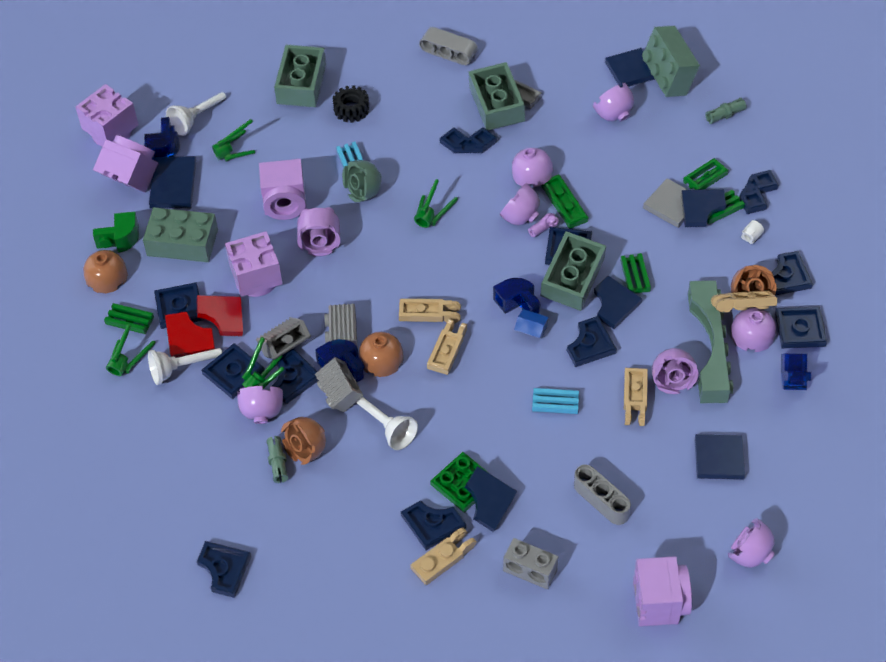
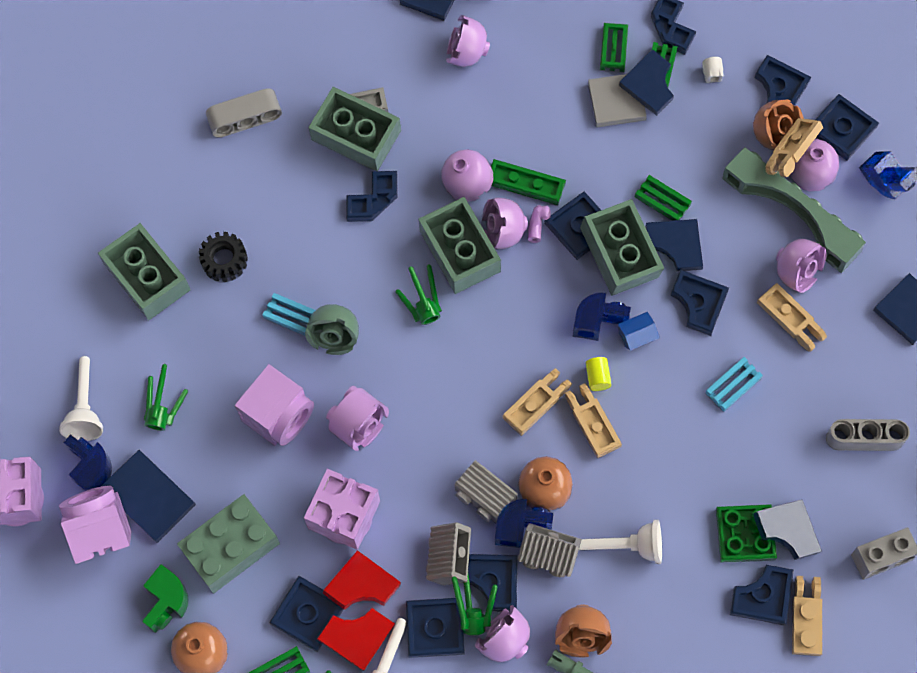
camera: 45 degrees left, 15 degrees up
(481, 326) = (598, 374): none -> neon yellow piece
(482, 196) = (459, 245): none -> sand green brick

